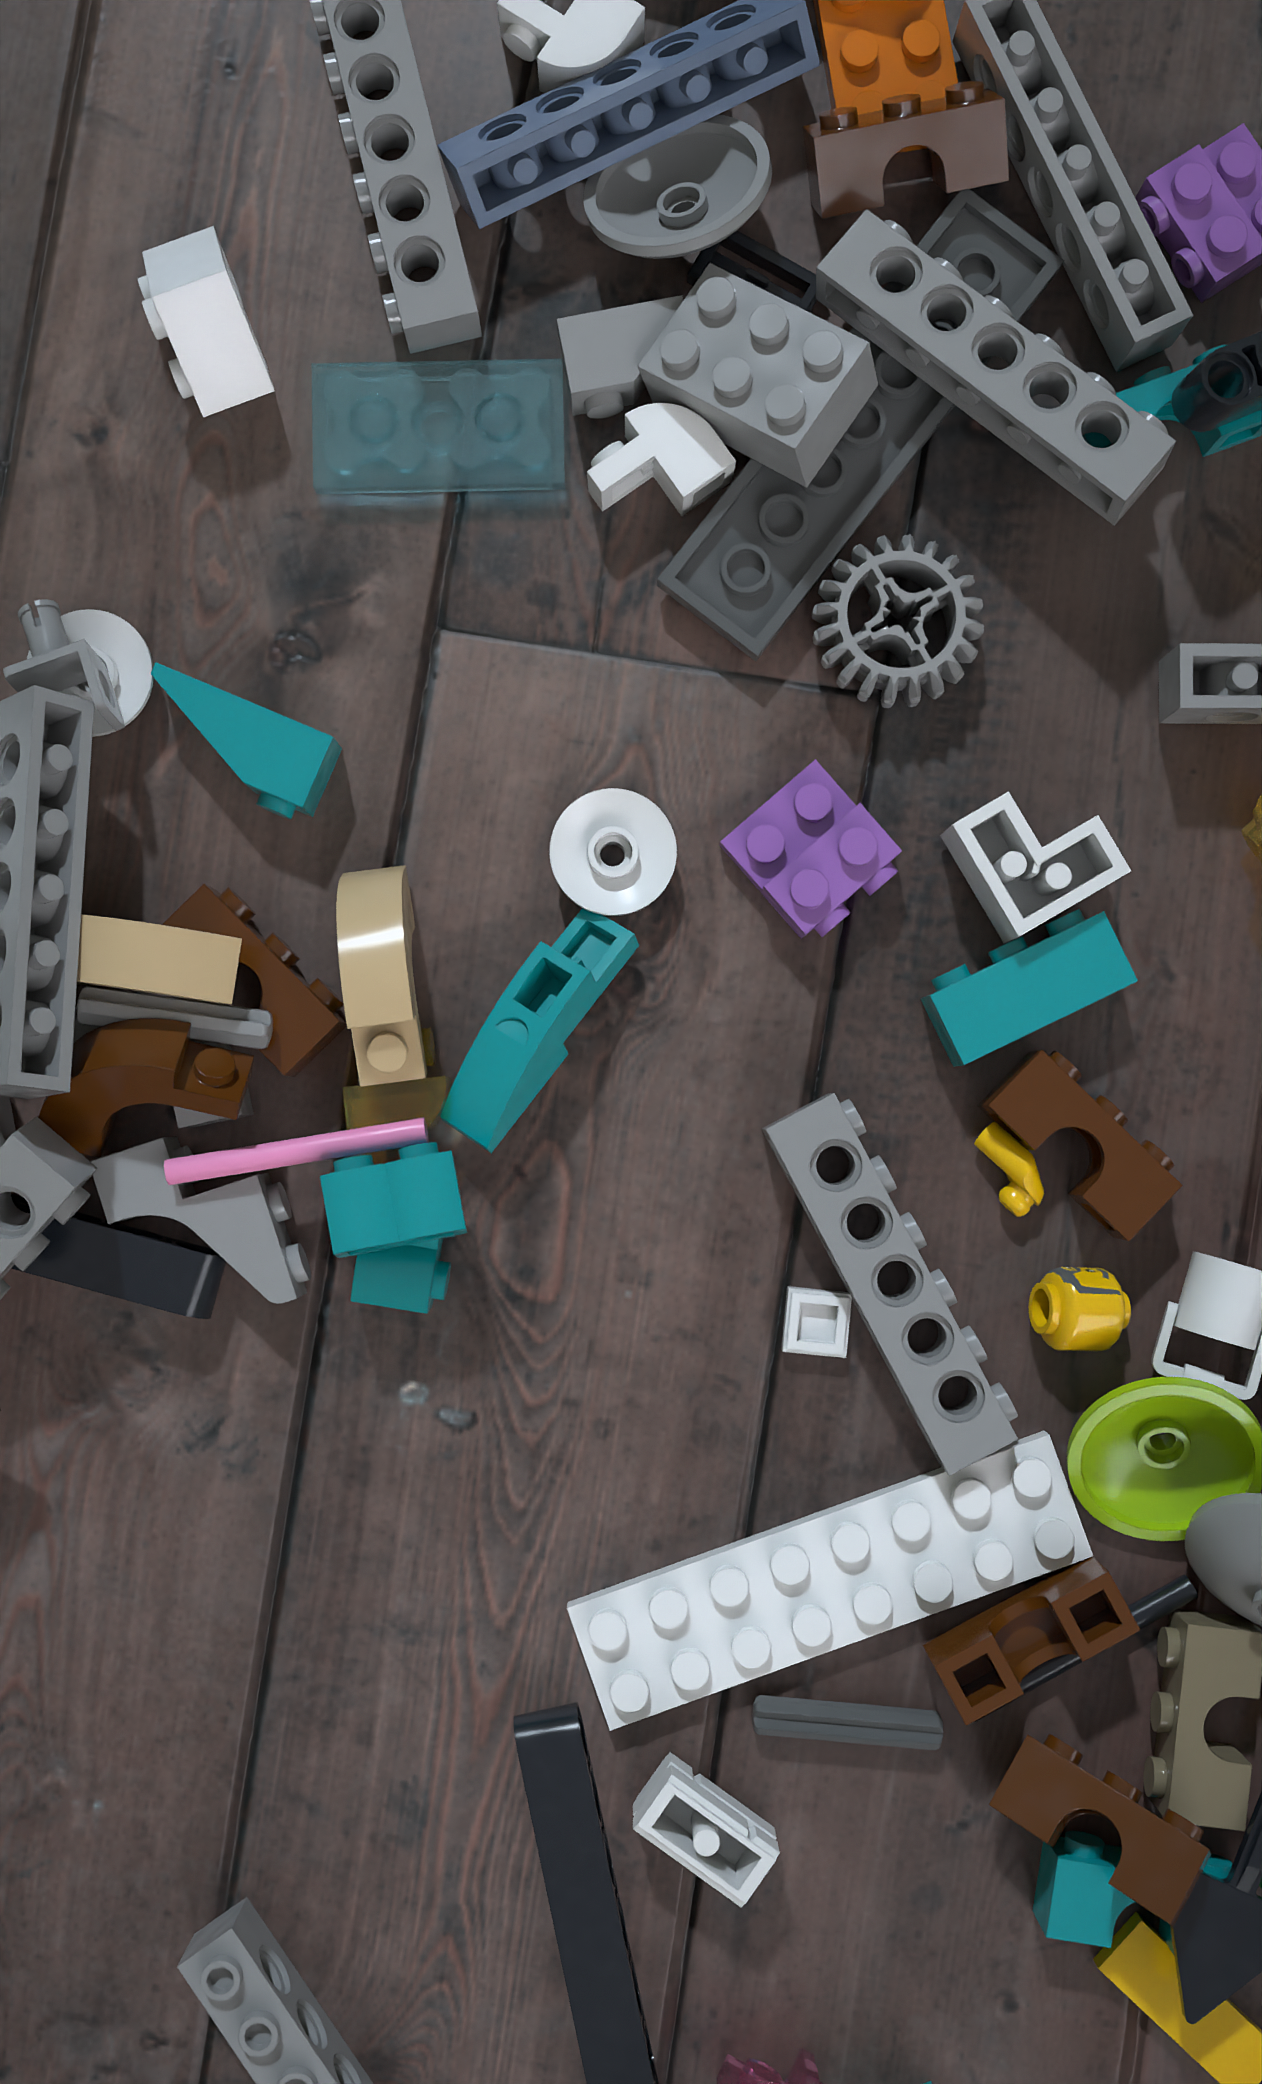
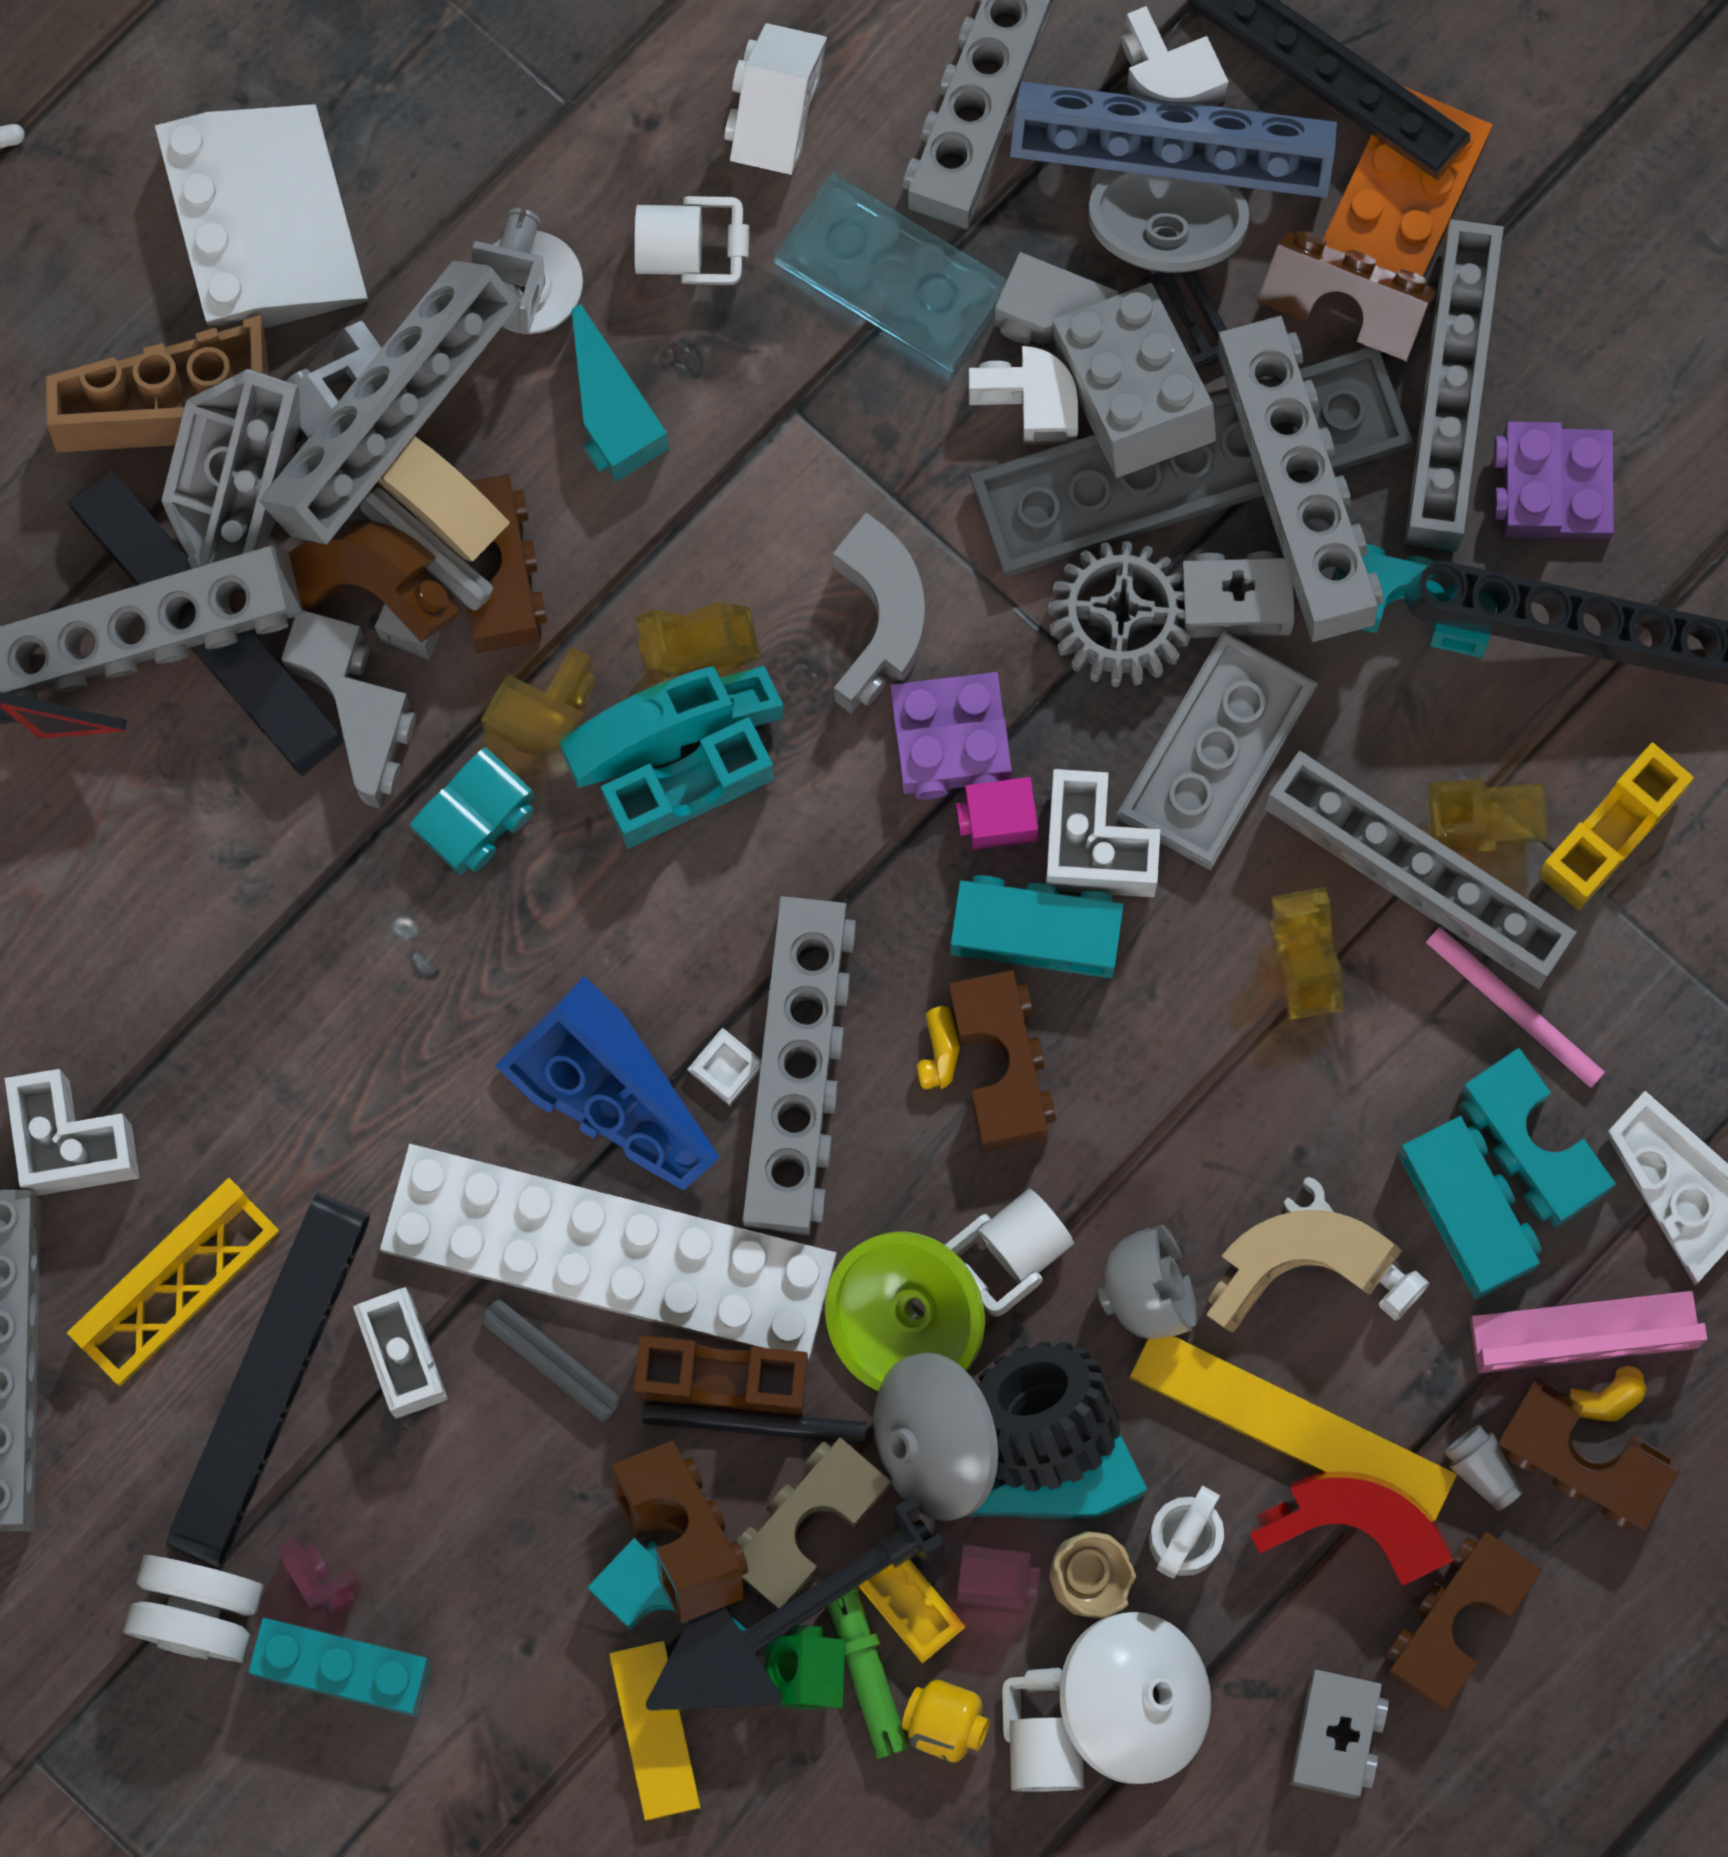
camera: 40 degrees right, 10 degrees down
(200, 536) = (671, 240): none -> white piece
(226, 1858) = (55, 1149): none -> white brick
(295, 1151) = (445, 694): bright pink bar -> none
(378, 976) = (588, 601): tan arch -> none
(392, 1201) = (488, 769): teal brick -> none
(408, 1904) = (159, 1267): none -> yellow fence
(505, 925) = (706, 637): none -> clear yellow brick
(595, 1074) = (665, 797): none -> teal arch
(617, 819) = (807, 615): white dish -> none
(654, 737) = (889, 577): none -> light grey arch
(696, 1411) = (602, 1075): none -> blue wedge
(914, 900) = (998, 813): none -> dark pink brick
(1027, 506) = (1212, 608): none -> light grey brick
(1078, 695) = (1217, 750): none -> light grey piece
(1079, 1309) = (918, 1176): yellow head -> none

